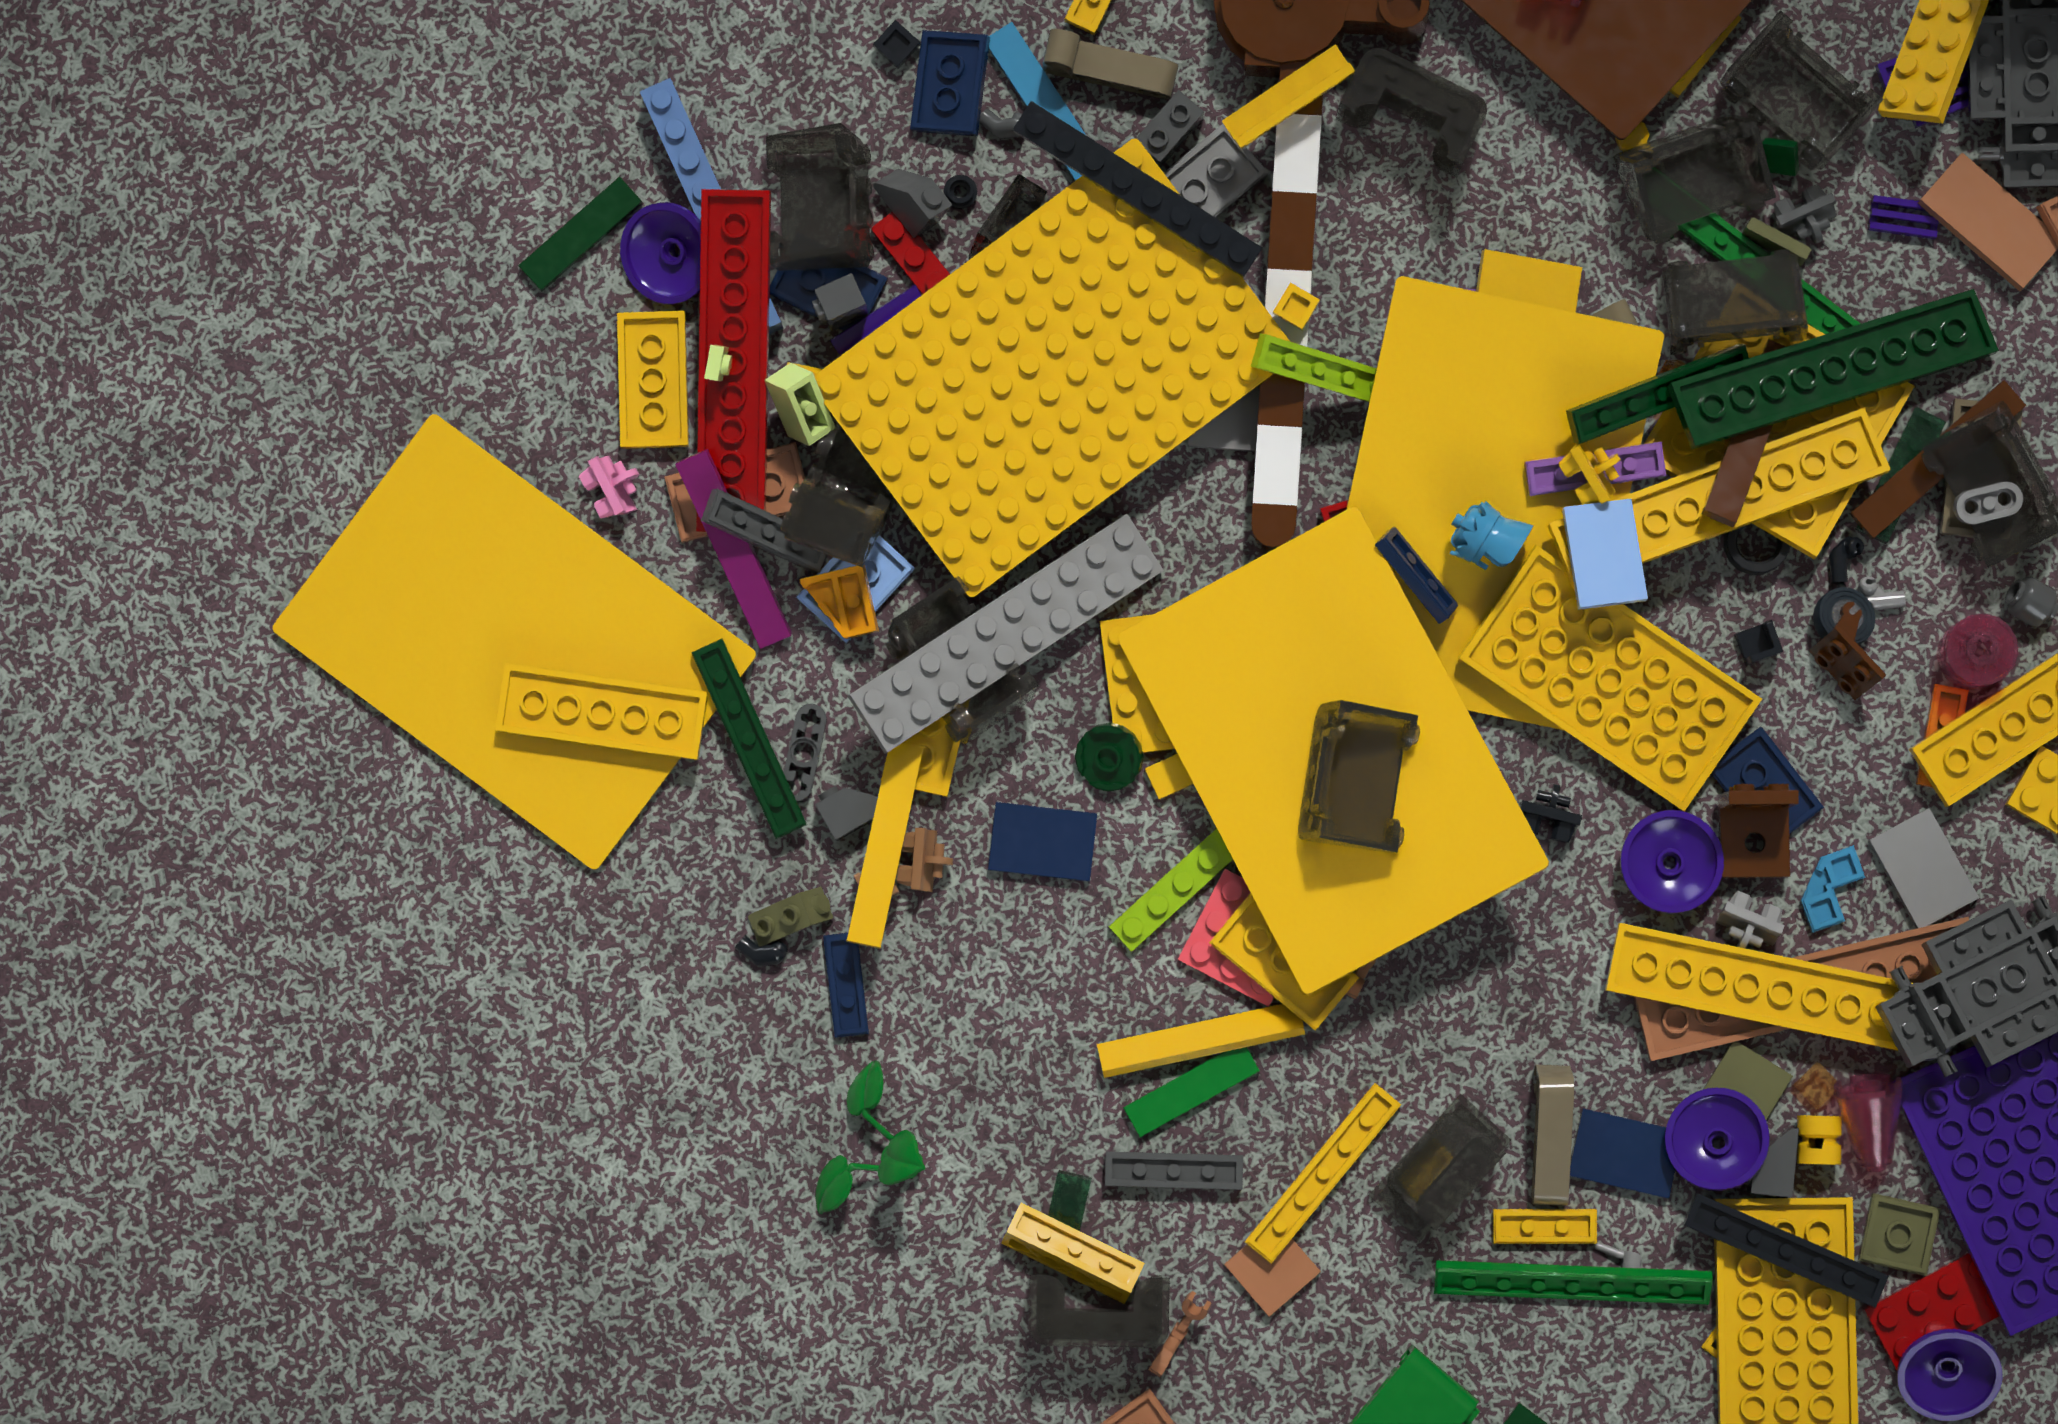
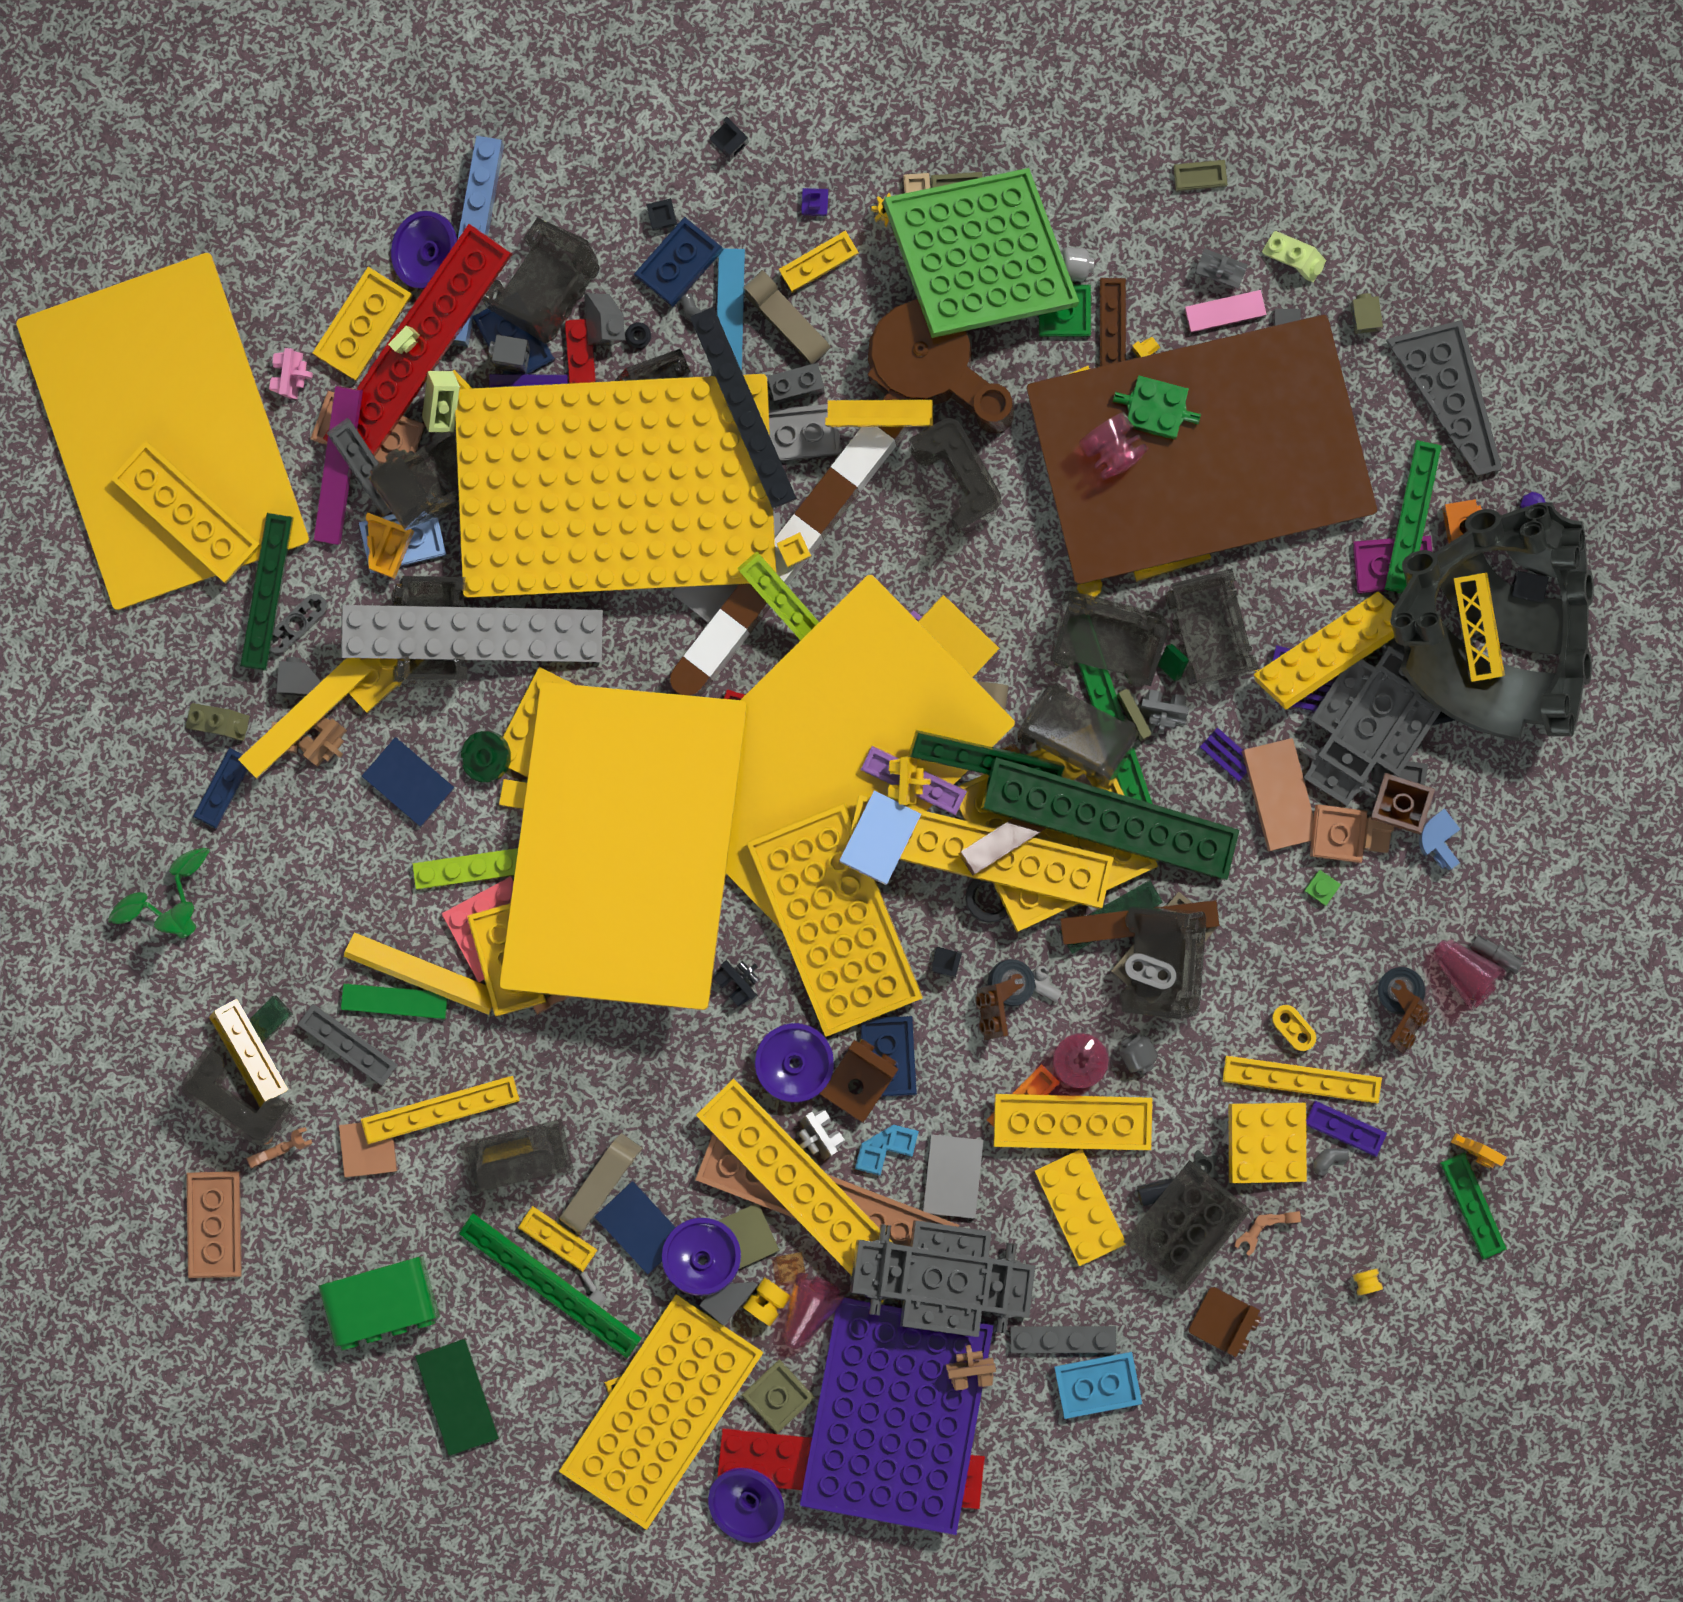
camera: 30 degrees right, 0 degrees up
(580, 234) = (380, 201): dark green tile -> none
(764, 955) = (183, 734): black arm -> none
(1355, 776) = (624, 872): clear smoke windscreen -> none
(1416, 575) = (754, 771): dark blue tile -> none
(1487, 534) = (816, 775): dark azure hat -> none
(1785, 1250) = (696, 1356): black plate -> none
(1841, 555) = (1037, 943): black arm -> none

